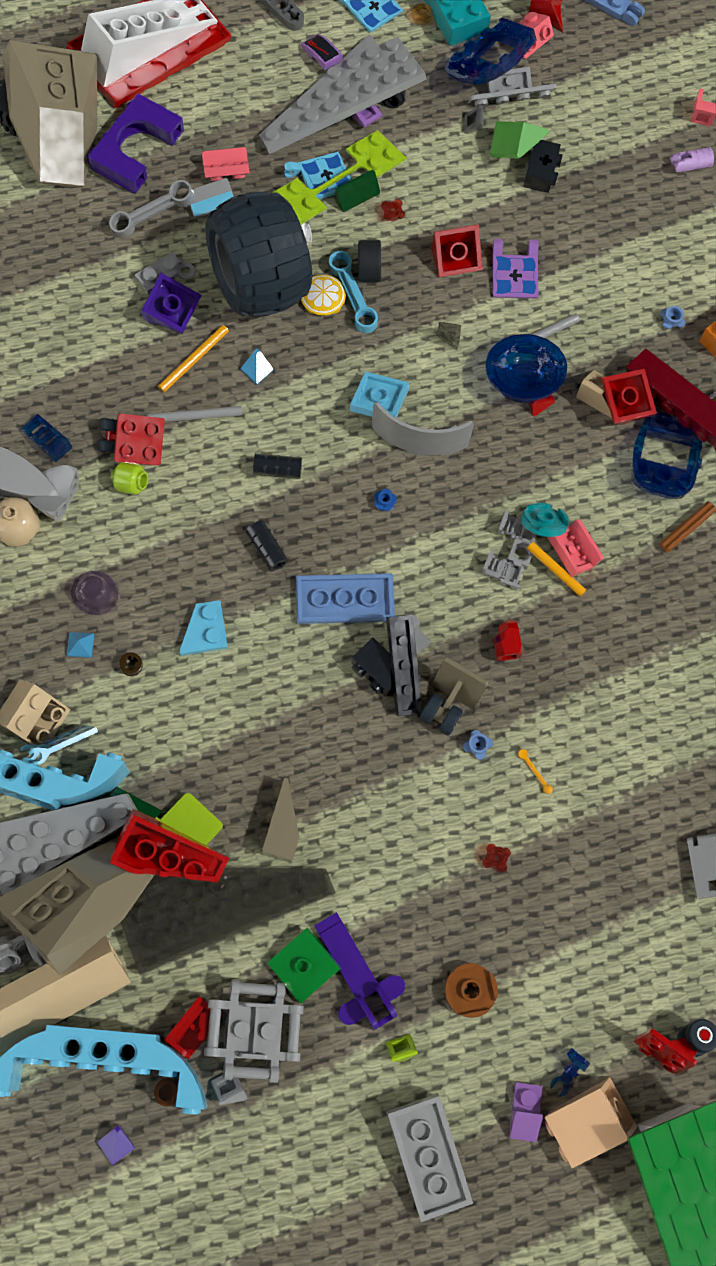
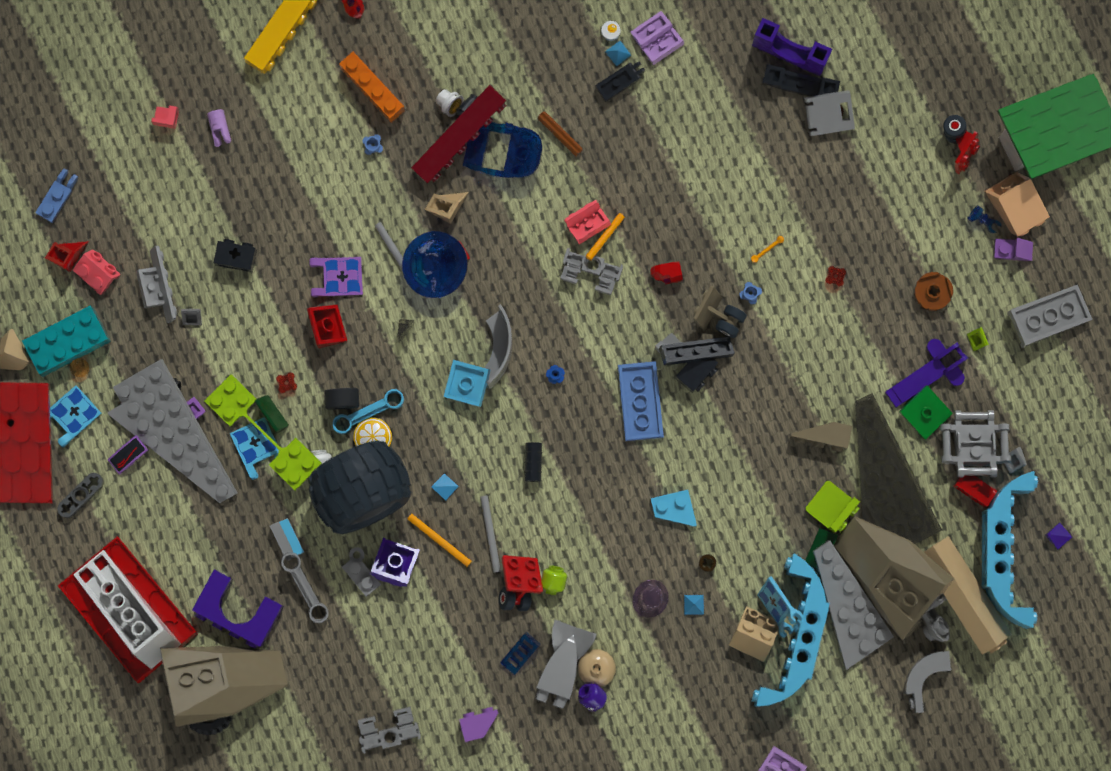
camera: 85 degrees left, 10 degrees up
(160, 850) = (855, 522): red wedge -> none
(166, 1092) = (1021, 503): reddish brown plate -> none
(225, 162) = (254, 528): coral bracket -> none
(266, 545) = (602, 465): black axle -> none
(471, 69) = (145, 318): clear blue slope -> none
(515, 139) = (214, 279): bright green slope -> none
(544, 520) = (566, 246): teal tile -> none
(629, 396) = (456, 181): red slope -> none

